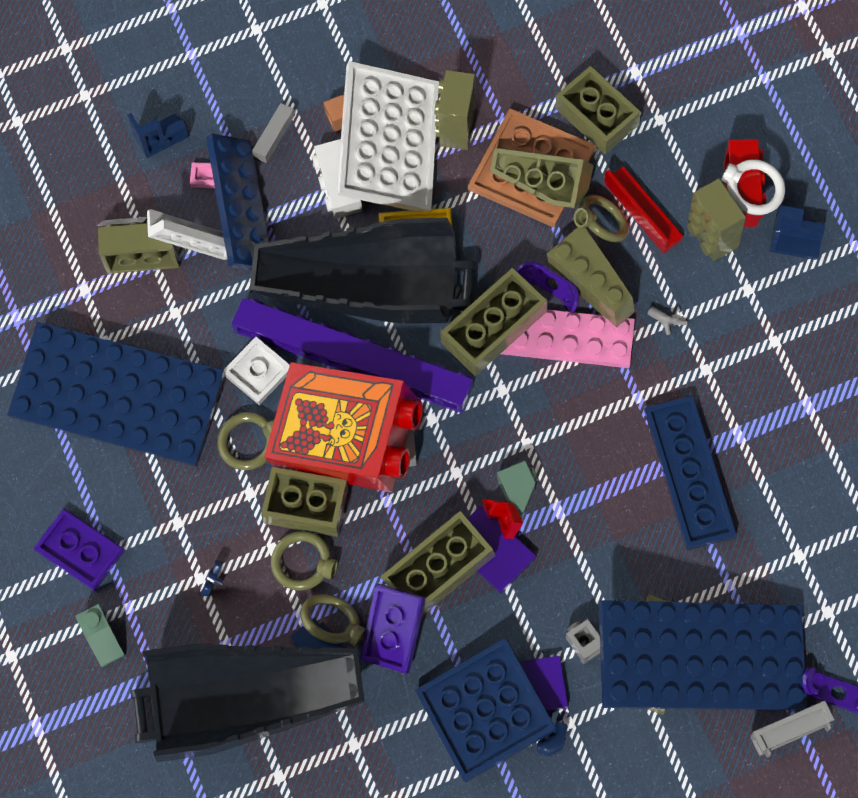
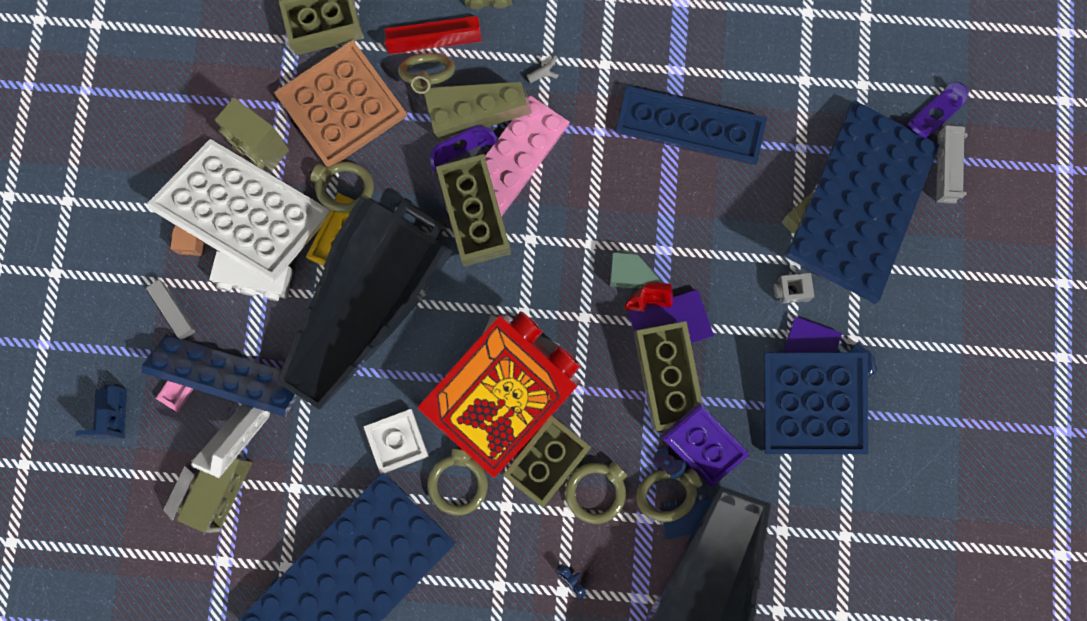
camera: 65 degrees left, 10 degrees up
(351, 354) = (427, 351): dark purple brick -> none
(359, 609) = (669, 463): none -> dark blue piece
(458, 188) = (322, 176): none -> olive piece
(550, 178) = (363, 93): olive wedge -> none

